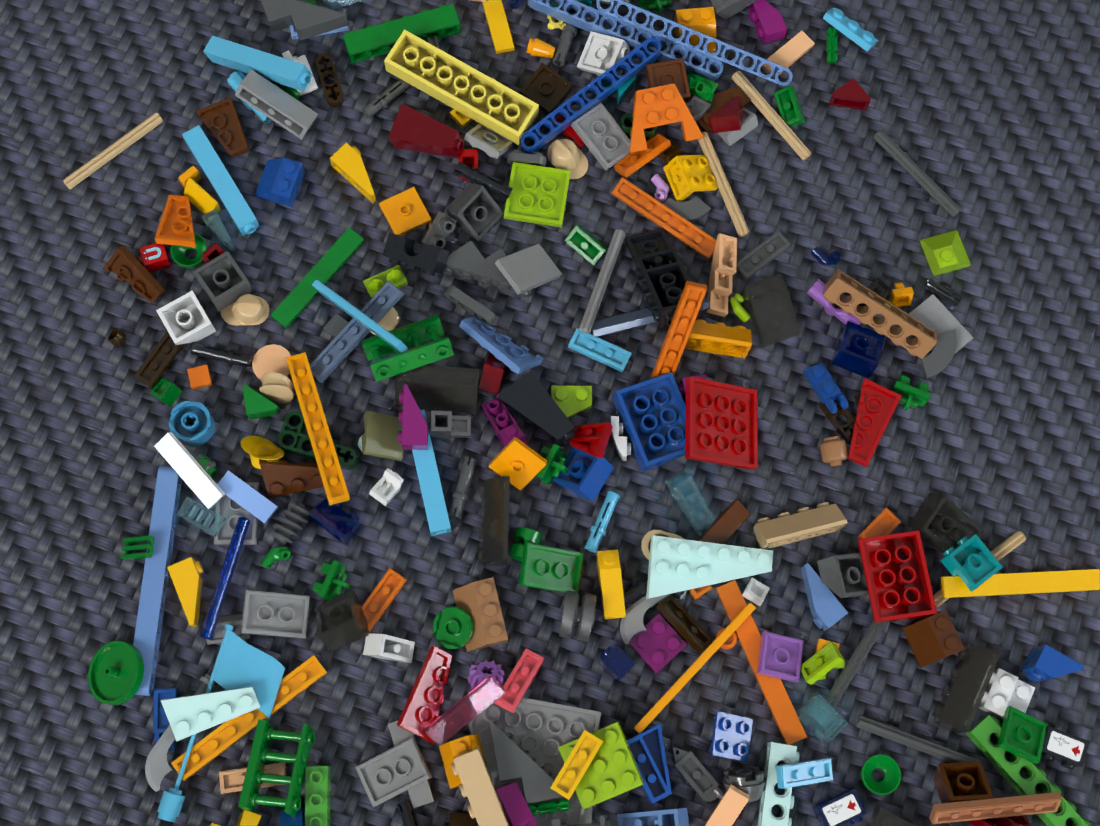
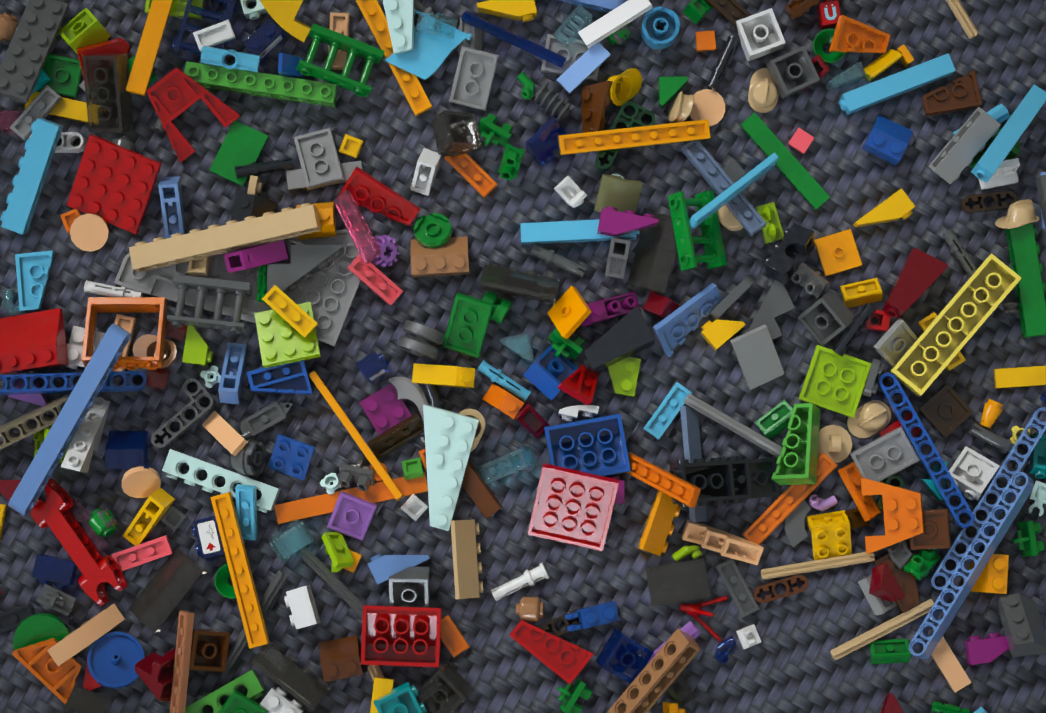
camera: 110 degrees right, 10 degrees up
(220, 665) = (436, 25): none -> clear light blue slope
(293, 265) = (801, 140): none -> coral tile
(340, 47) = (1018, 214): none -> tan piece
(364, 555) = (511, 162): none -> green hips
(372, 739) = (351, 146): none -> yellow tile
(441, 184) = (861, 293): none -> yellow slope
(509, 311) = (720, 331): none -> yellow slope
(561, 510) = (519, 345): none -> clear light blue slope
(597, 188) = (834, 443): none -> tan tile
(620, 212) = (800, 448): none -> bright green wedge
(624, 517) = (503, 401): none -> orange slope
(638, 486) = (531, 420): none -> dark red slope
(715, 601) = (412, 468): none -> bright green tile
(734, 658) = (357, 473): none -> dark grey hips
(756, 685) = (332, 477): none -> light aqua plate
(765, 224) = (764, 587): none -> reddish brown beam
(795, 290) = (695, 611): none -> red plant
(802, 459) = (528, 578): none -> white pin
(807, 237) = (748, 636): none -> white tile
(869, 766) = (240, 570): none -> light orange plate
(891, 690) = (302, 607): none -> white slope

